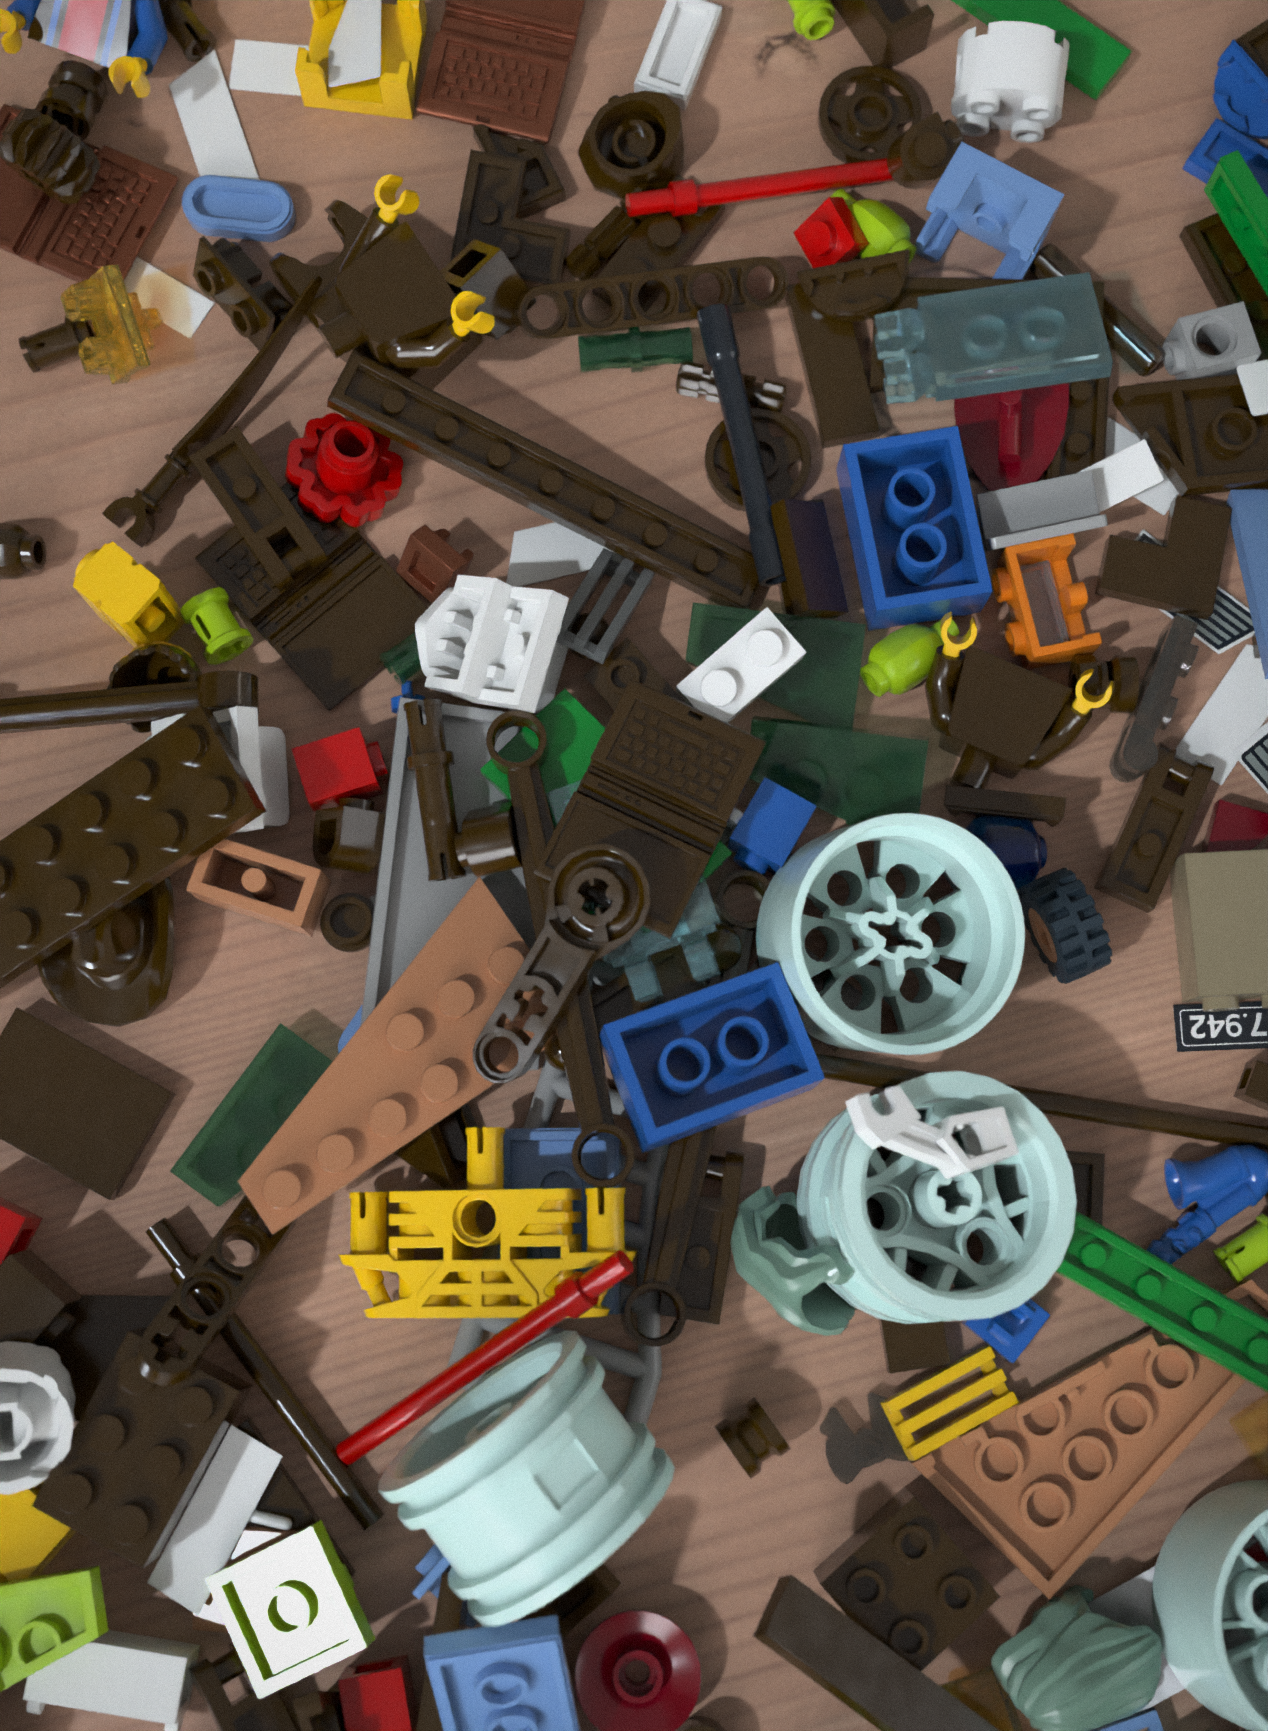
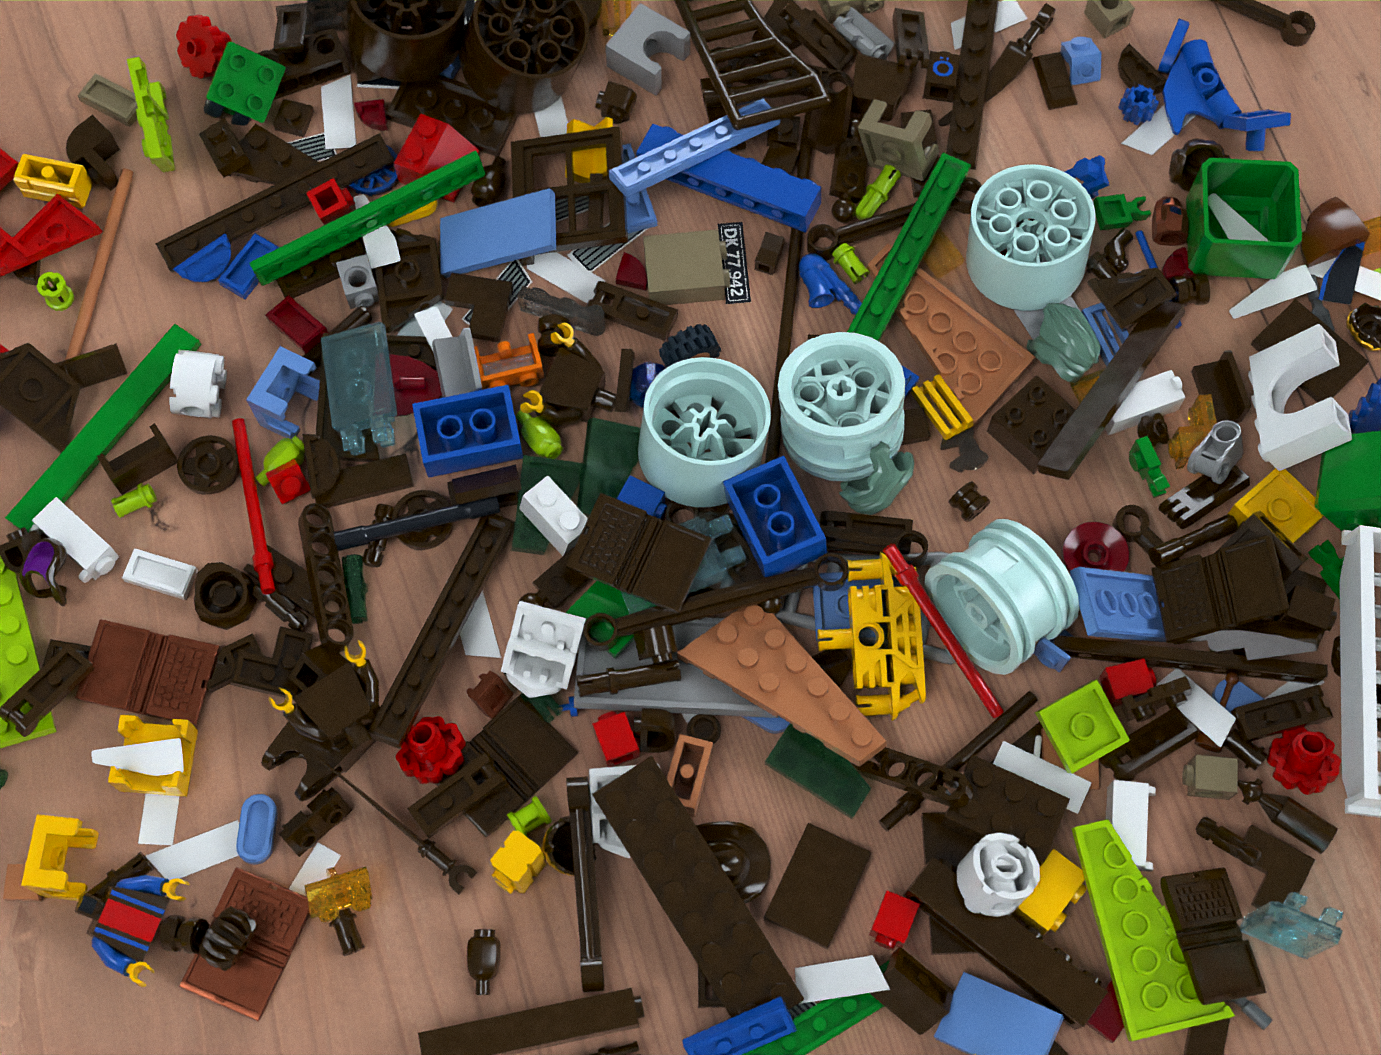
camera: 90 degrees left, 10 degrees down
(566, 949) = (721, 588): dark brown beam -> none
(620, 575) = (494, 588): dark grey tile -> none
(923, 152) = (239, 428): dark brown plate -> none
(983, 1133) = (817, 387): white piece -> none
(1129, 247) = (296, 324): none -> dark red tile

